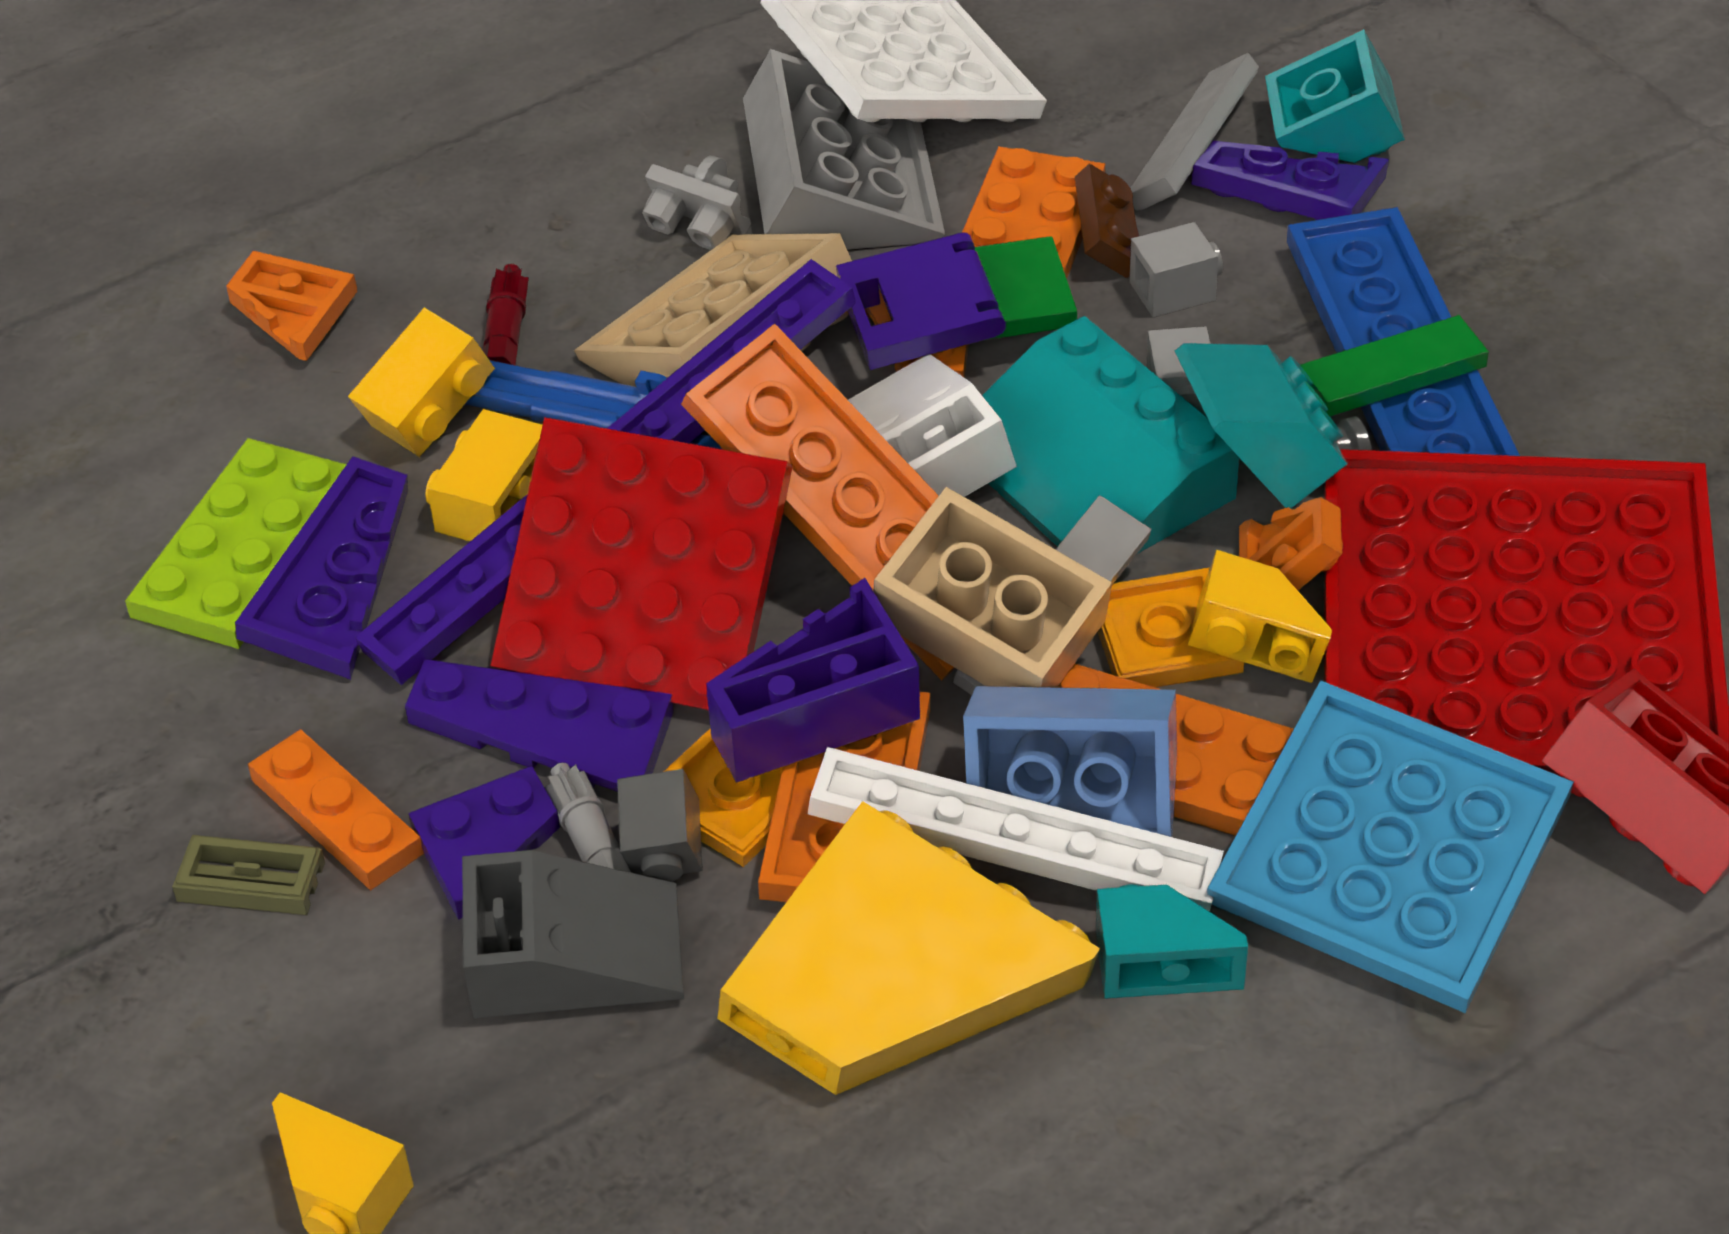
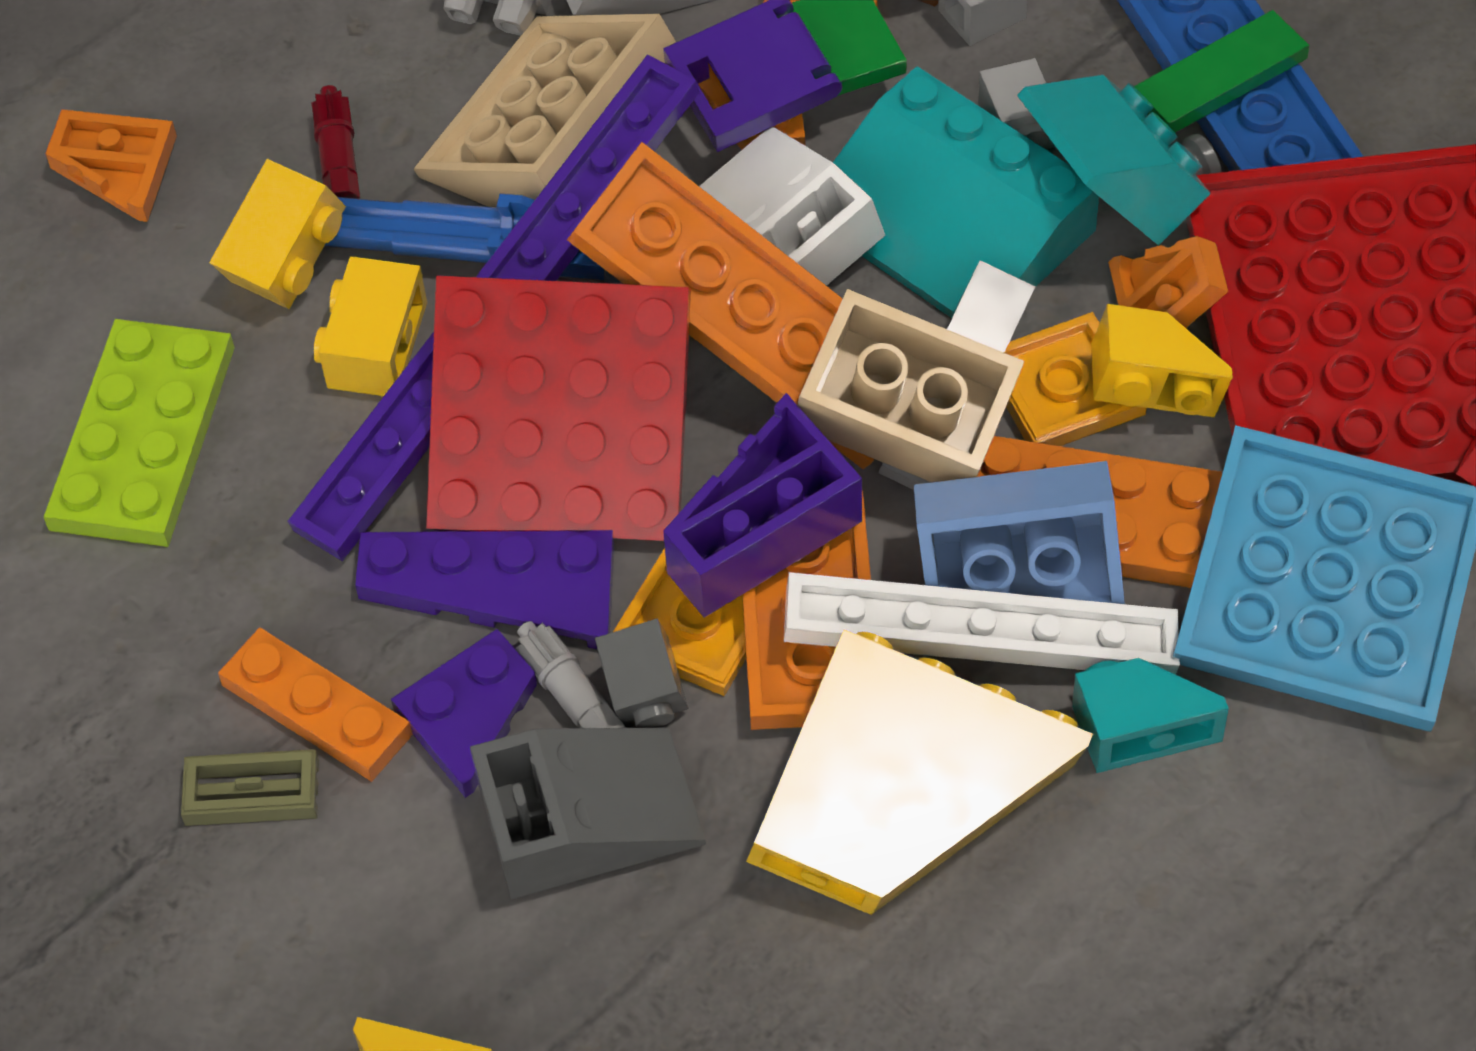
camera: 10 degrees left, 10 degrees up
(330, 572) = (239, 459): dark purple wing -> none

